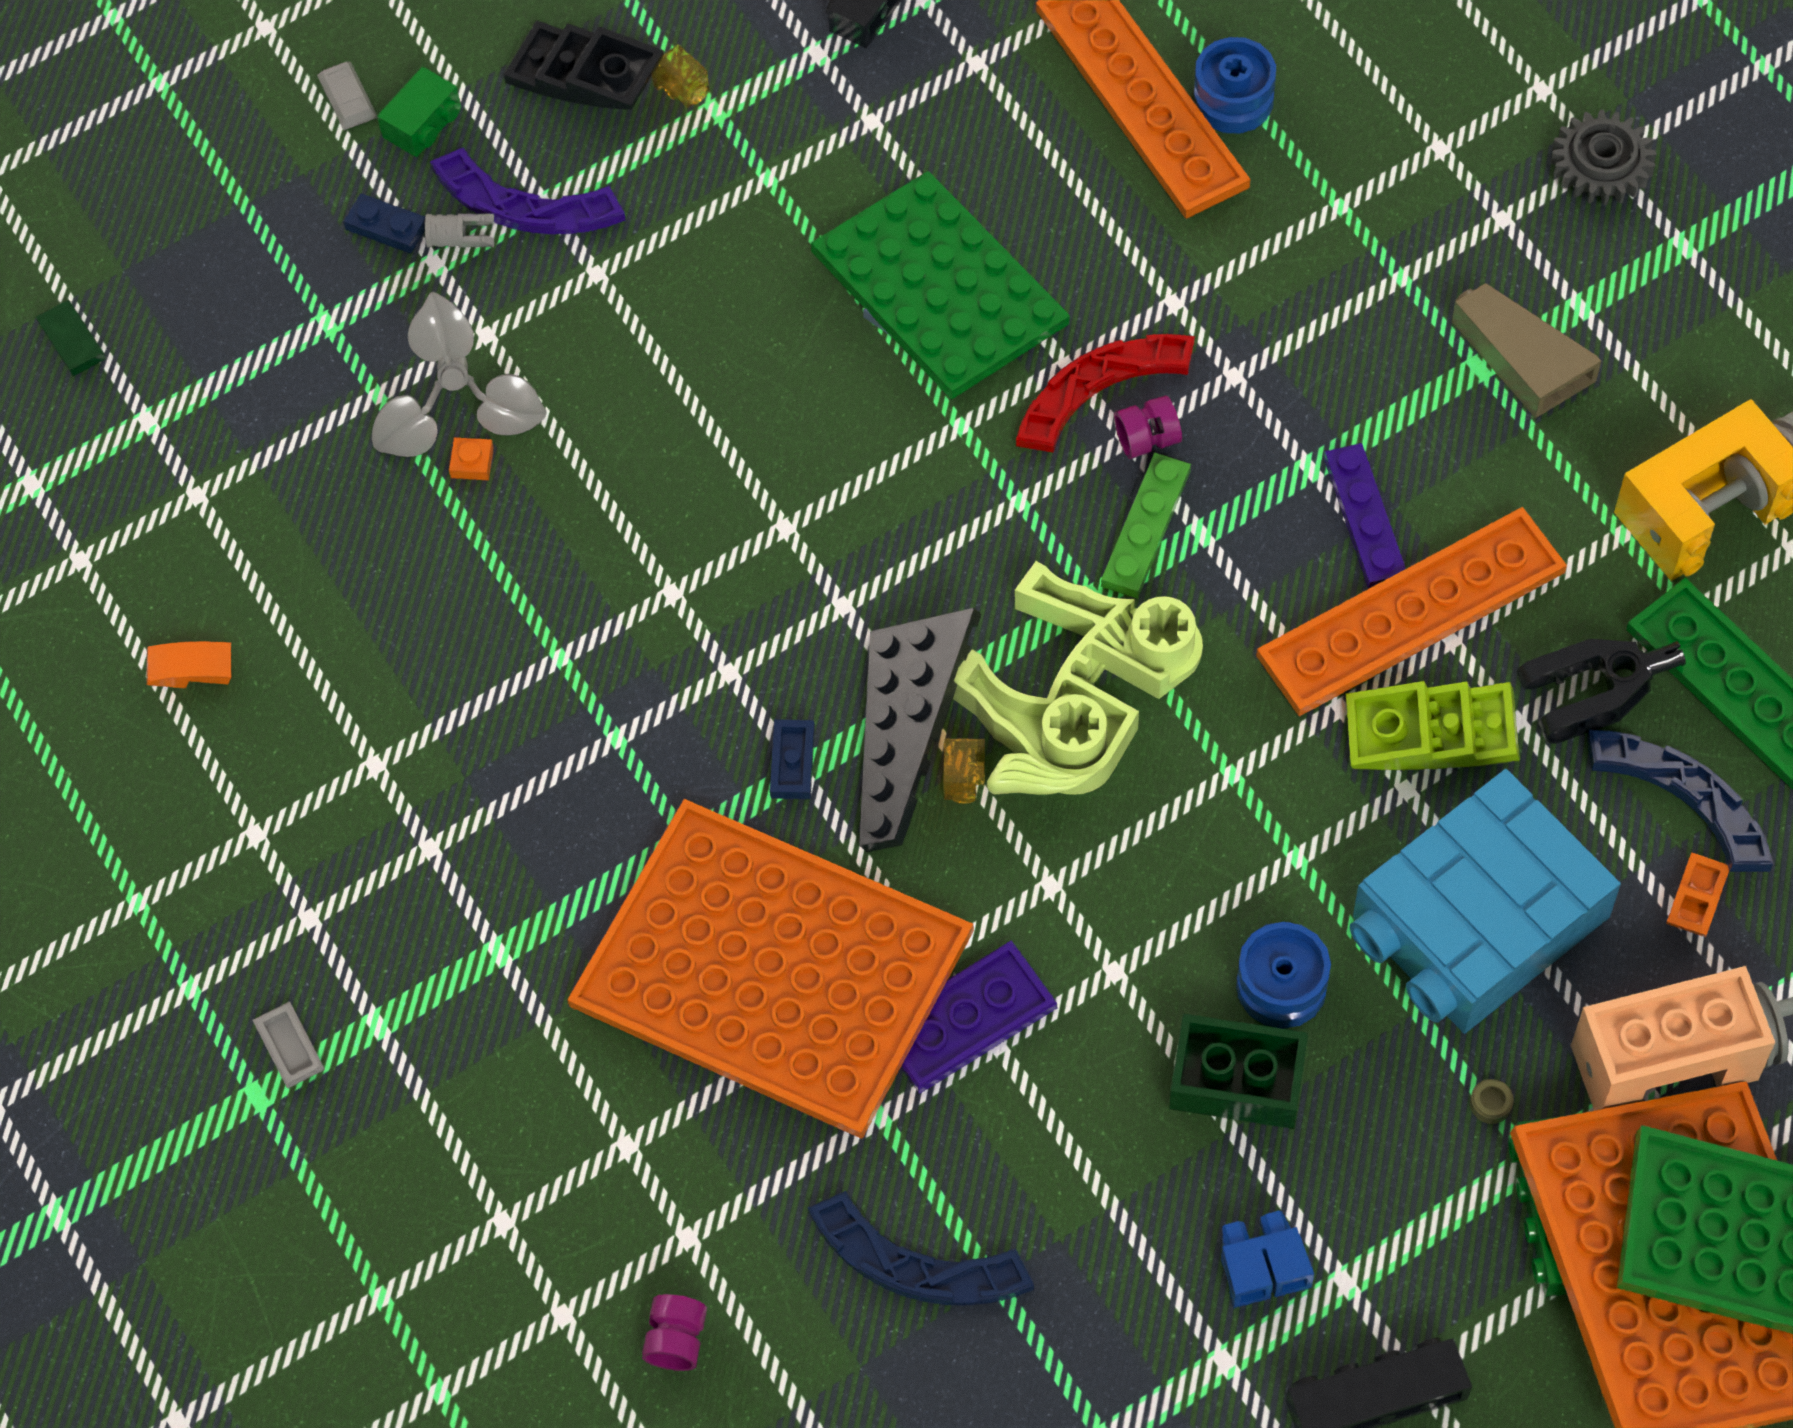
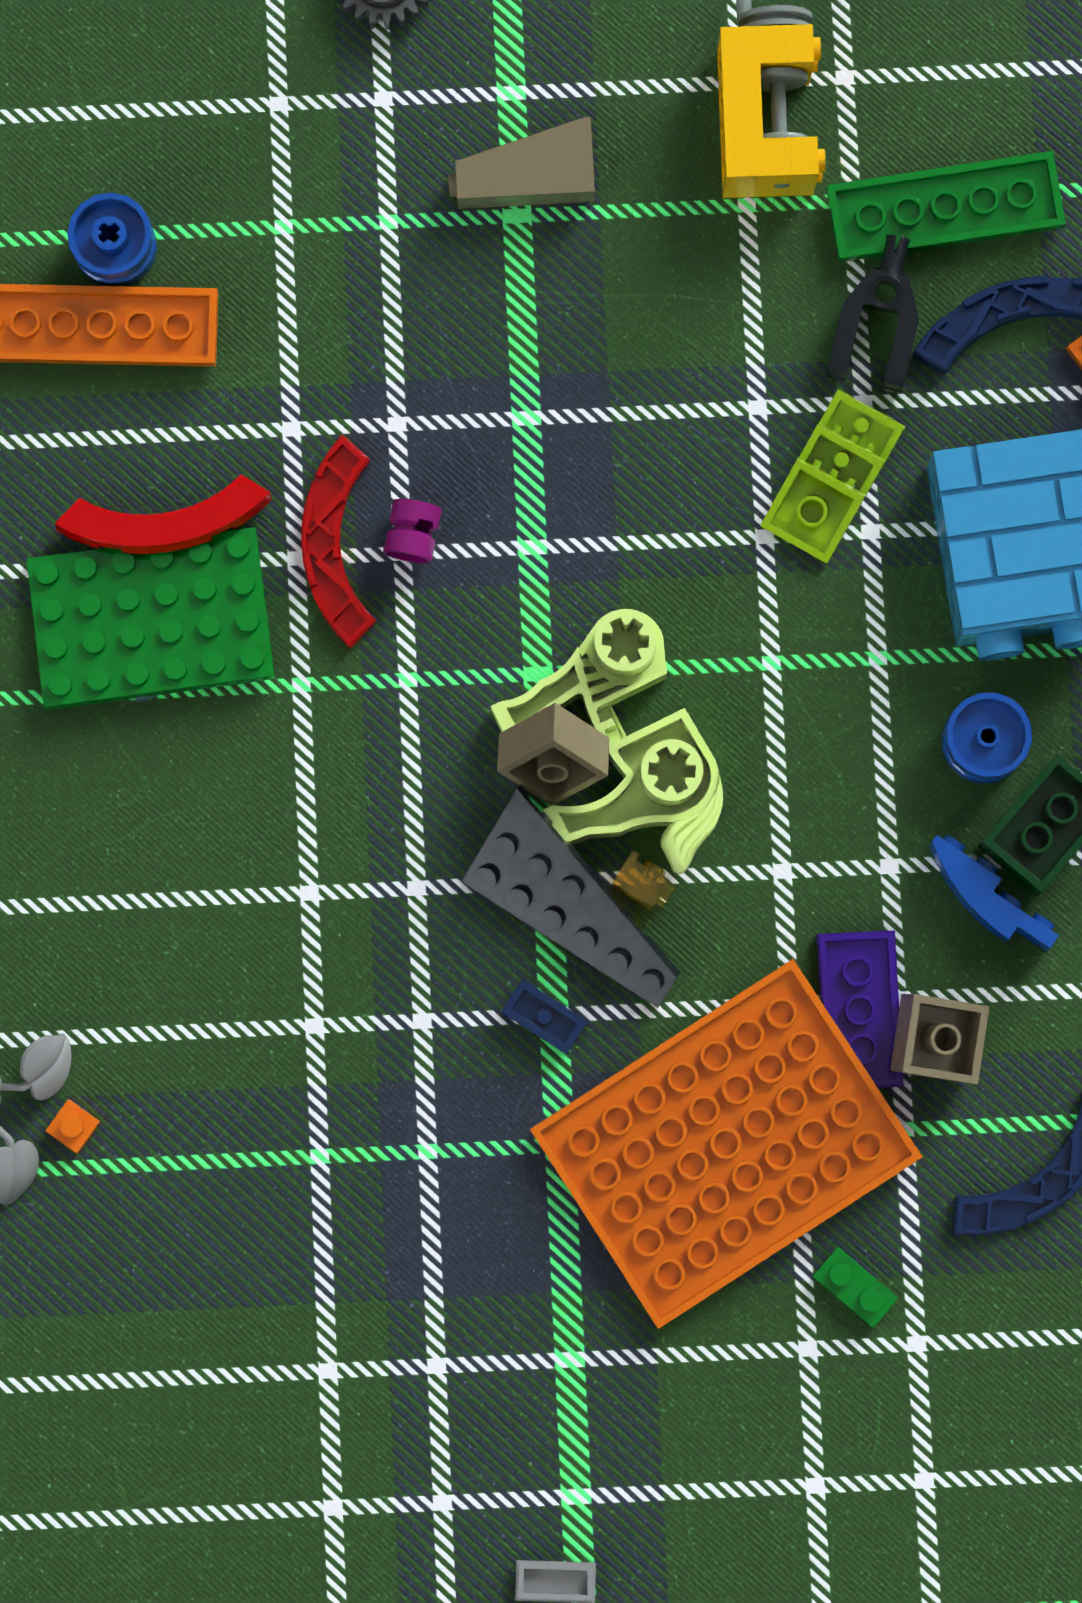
camera: 60 degrees left, 20 degrees up
(188, 661) = (134, 1482): orange slope -> none
(673, 1339) = (1002, 1402): magenta wheel -> none
(707, 1152) = (855, 1287): none -> green plate
(979, 1085) = (939, 1038): none -> dark tan brick
(1011, 242) = (167, 530): none -> red tile
(1024, 623) = (553, 754): none -> dark tan brick
(1138, 1057) = (974, 887): none -> blue slope
(1146, 525) = (499, 589): bright green plate -> none
(1364, 513) = (602, 402): dark purple plate -> none
(1410, 611) = (718, 424): orange plate -> none

